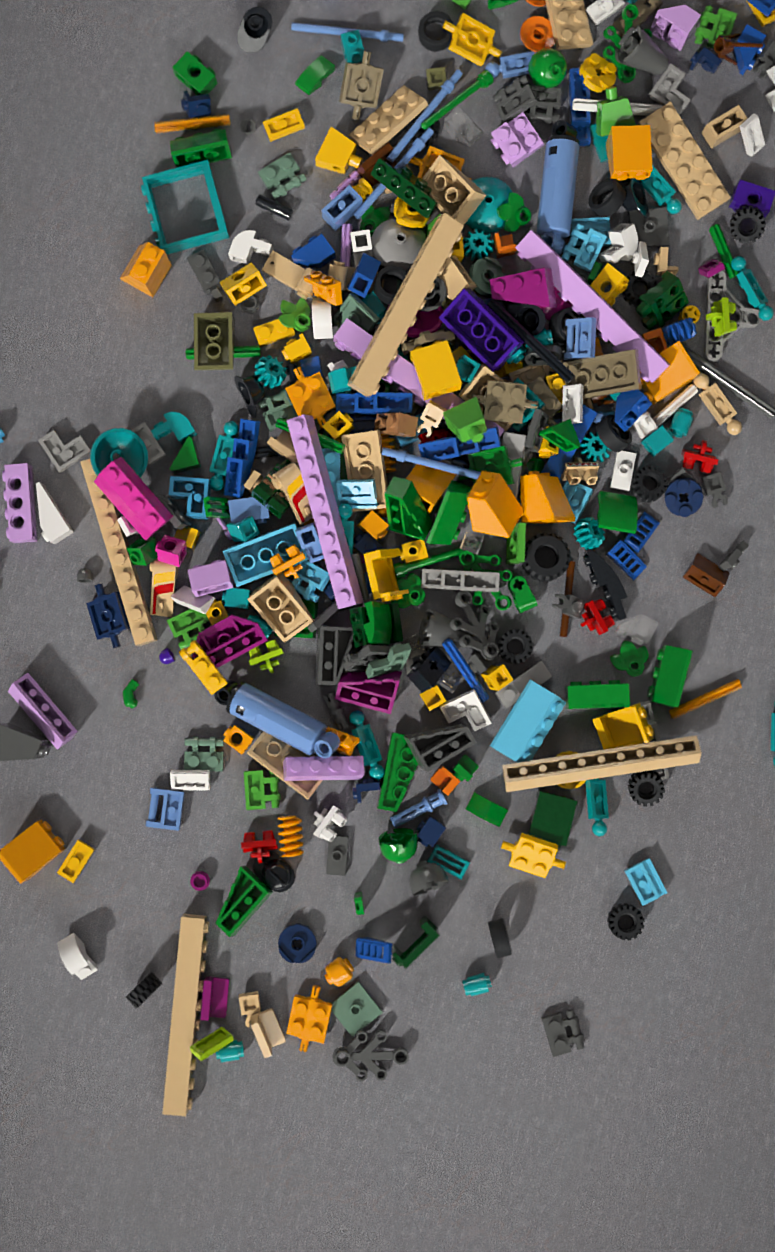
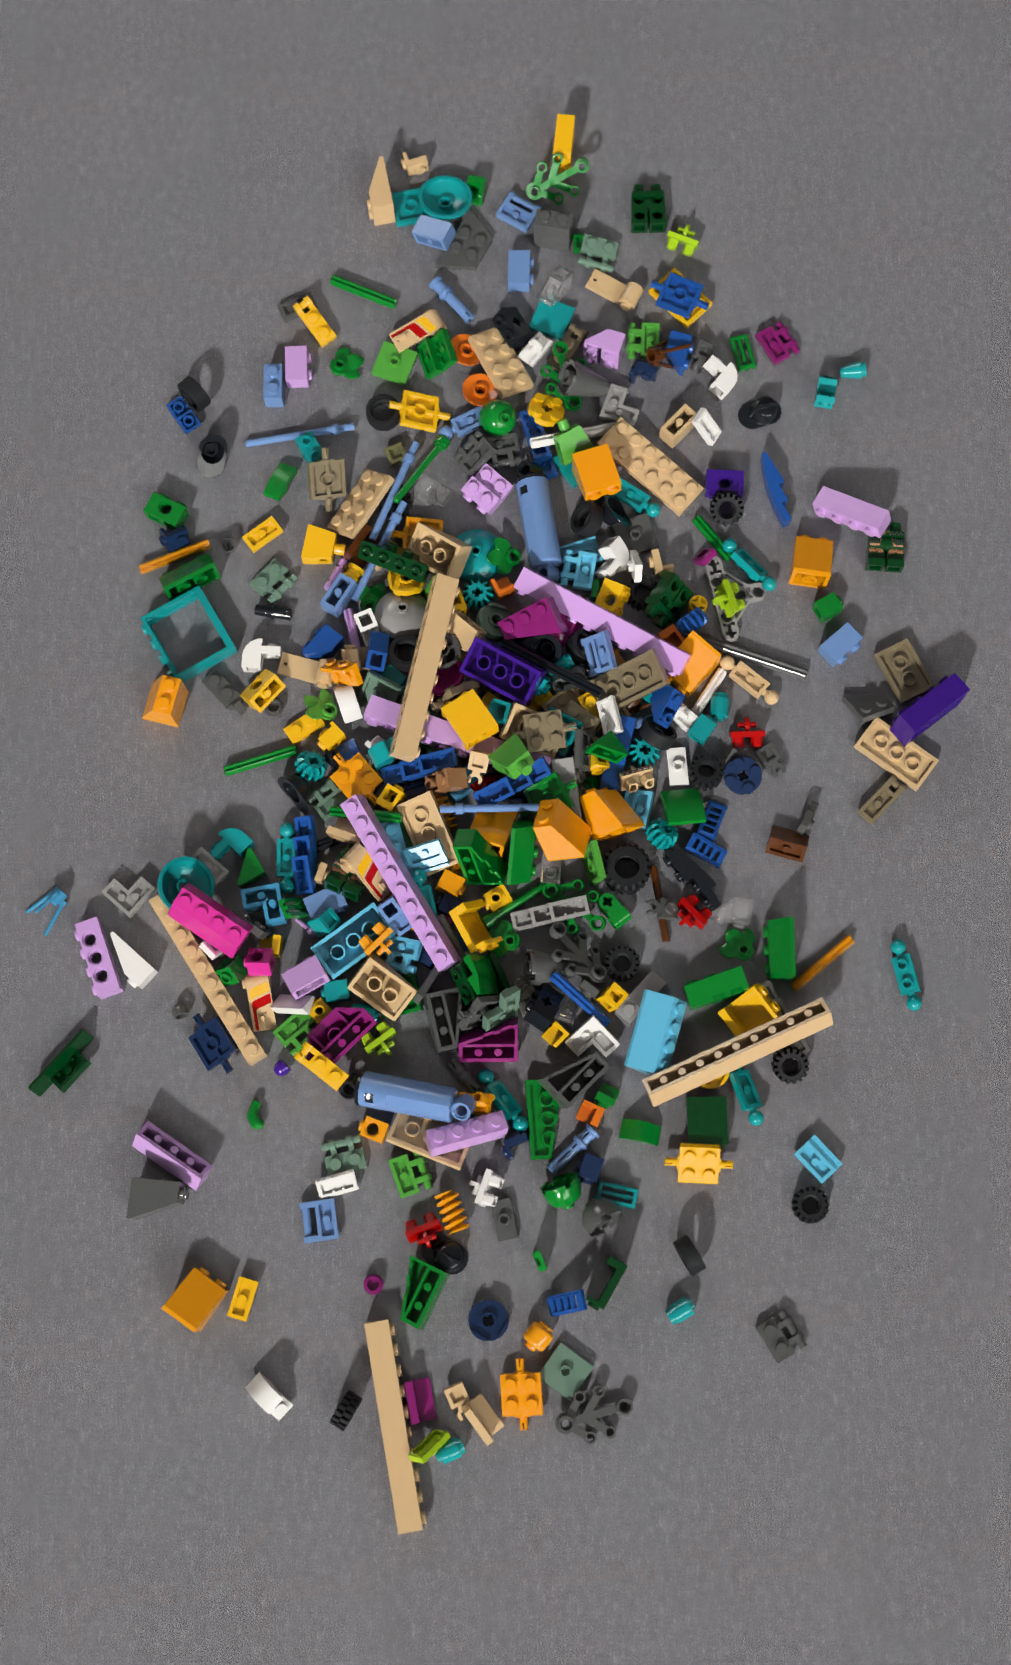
camera: 10 degrees left, 10 degrees down
(214, 341) = (249, 751): olive slope -> none

